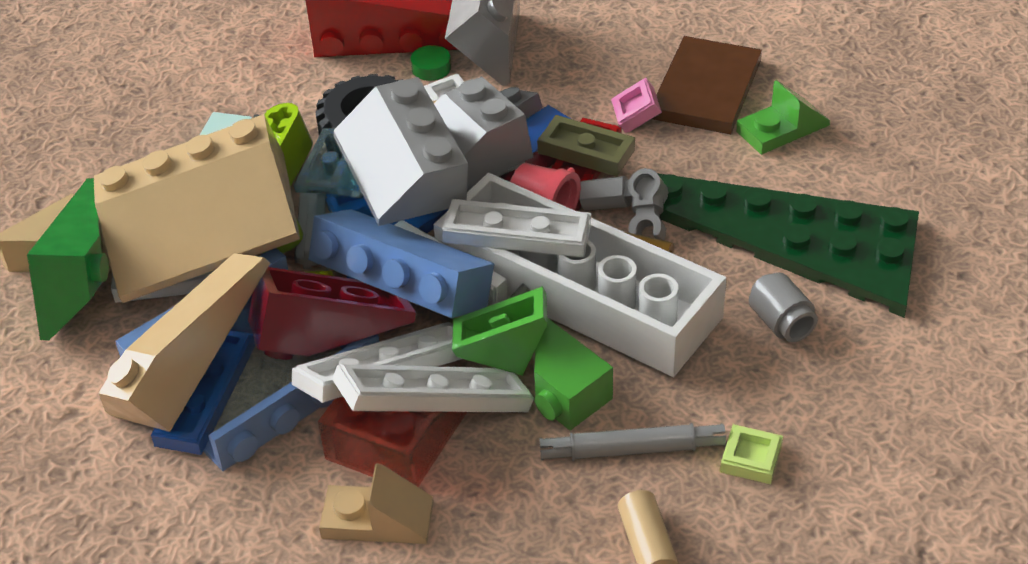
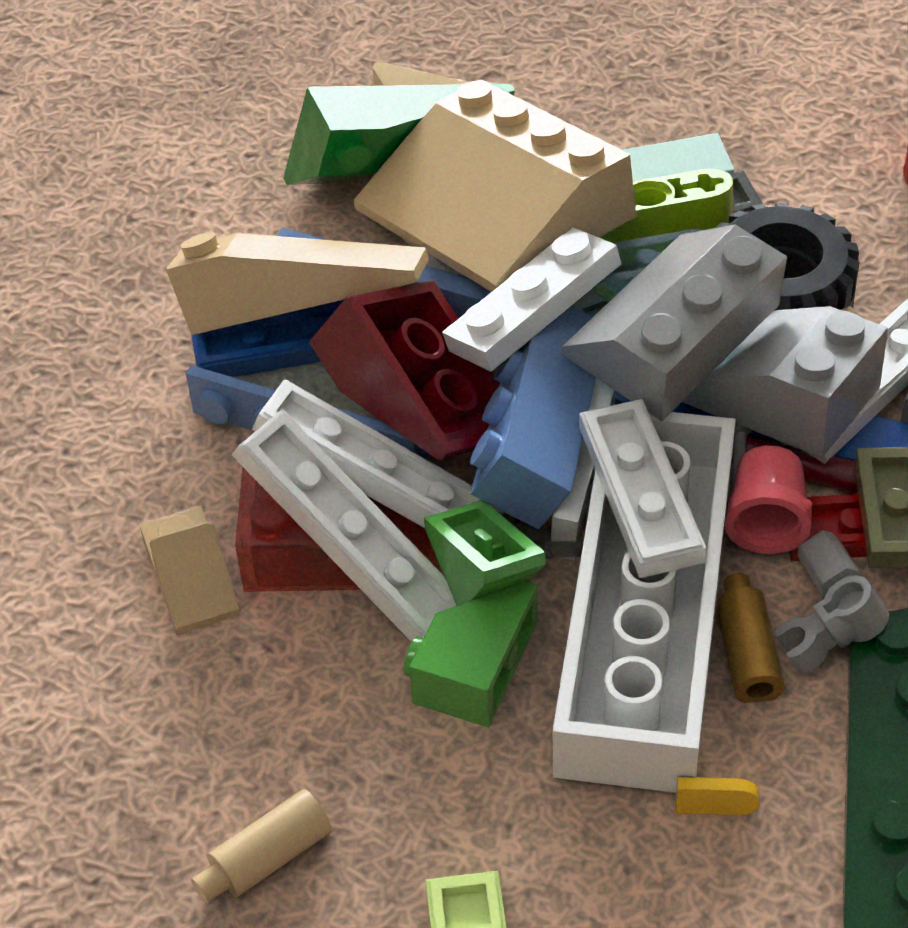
camera: 65 degrees right, 5 degrees up
(325, 219) = (531, 298): none -> white plate
(632, 441) = (419, 775): light grey piece -> none
(733, 306) = (716, 796): none -> yellow piece
(783, 307) = (739, 854): light grey brick -> none

